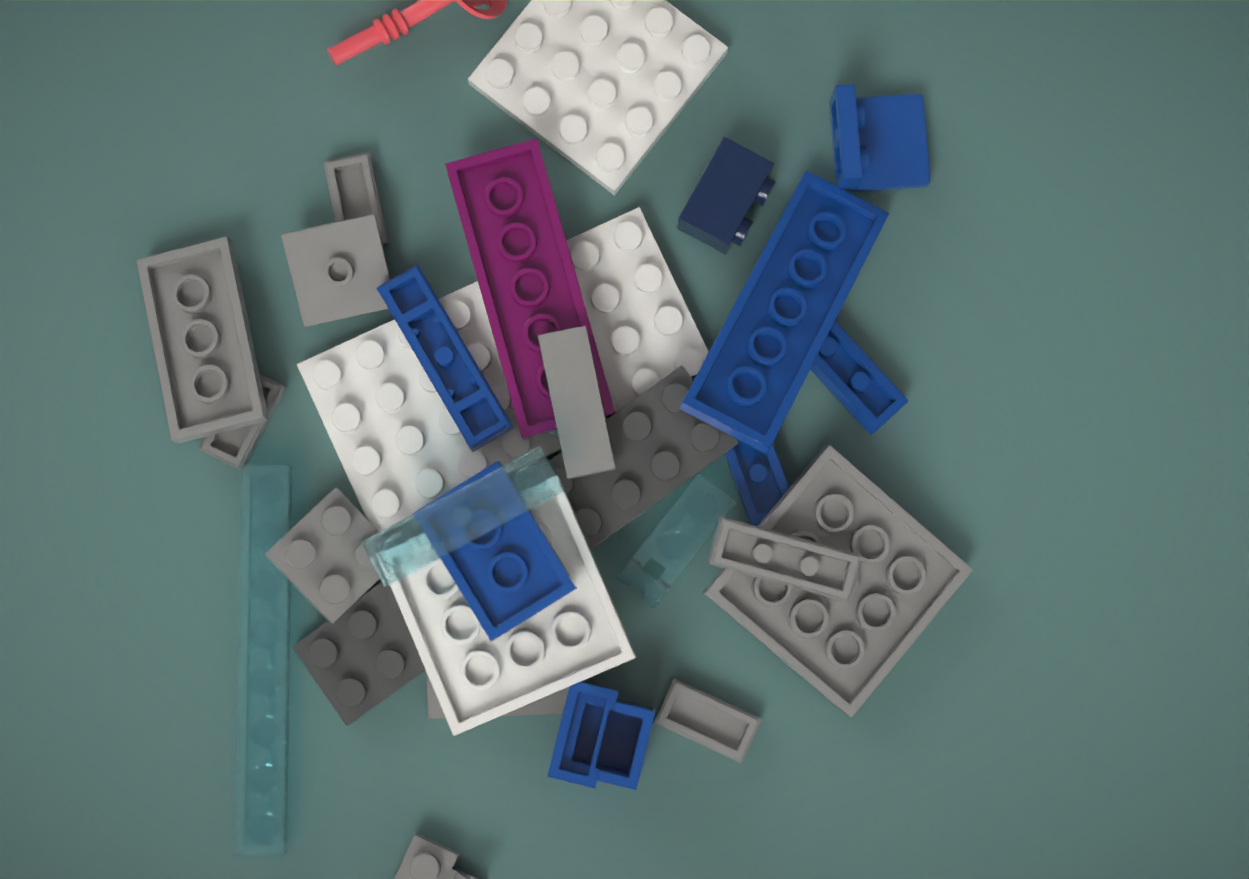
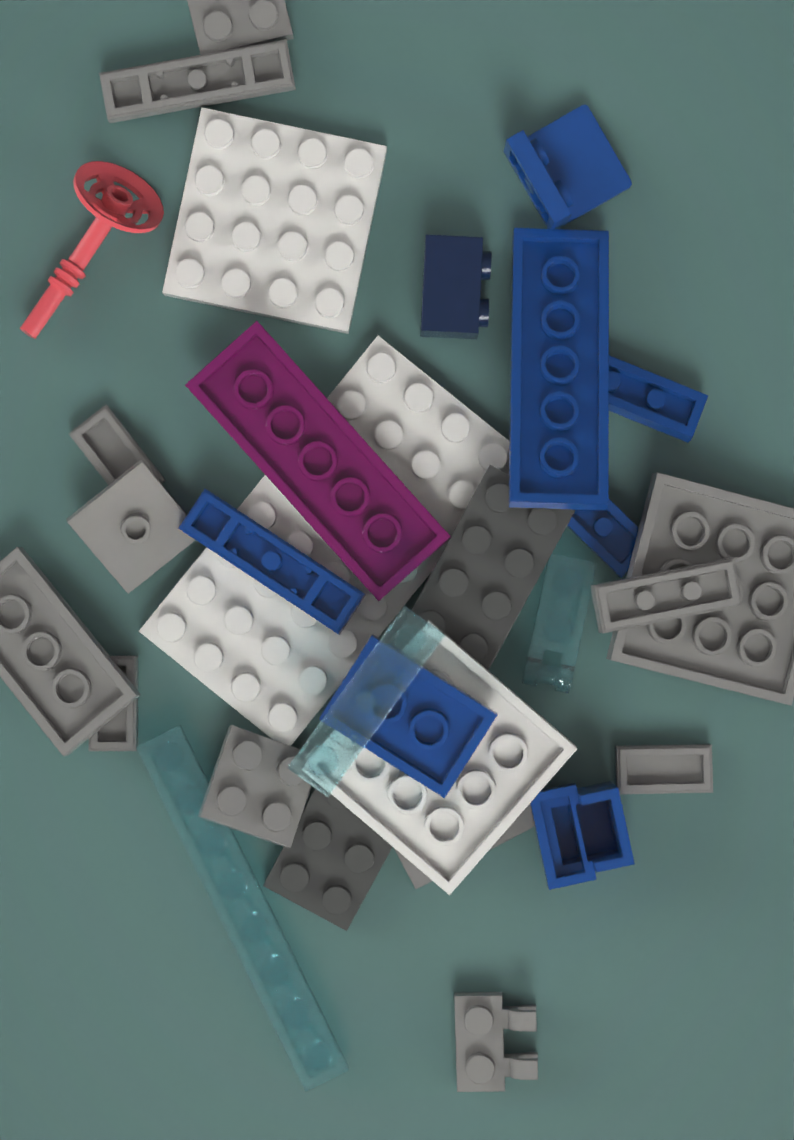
camera: 25 degrees left, 5 degrees up
(576, 402) = (413, 546): light grey tile -> none

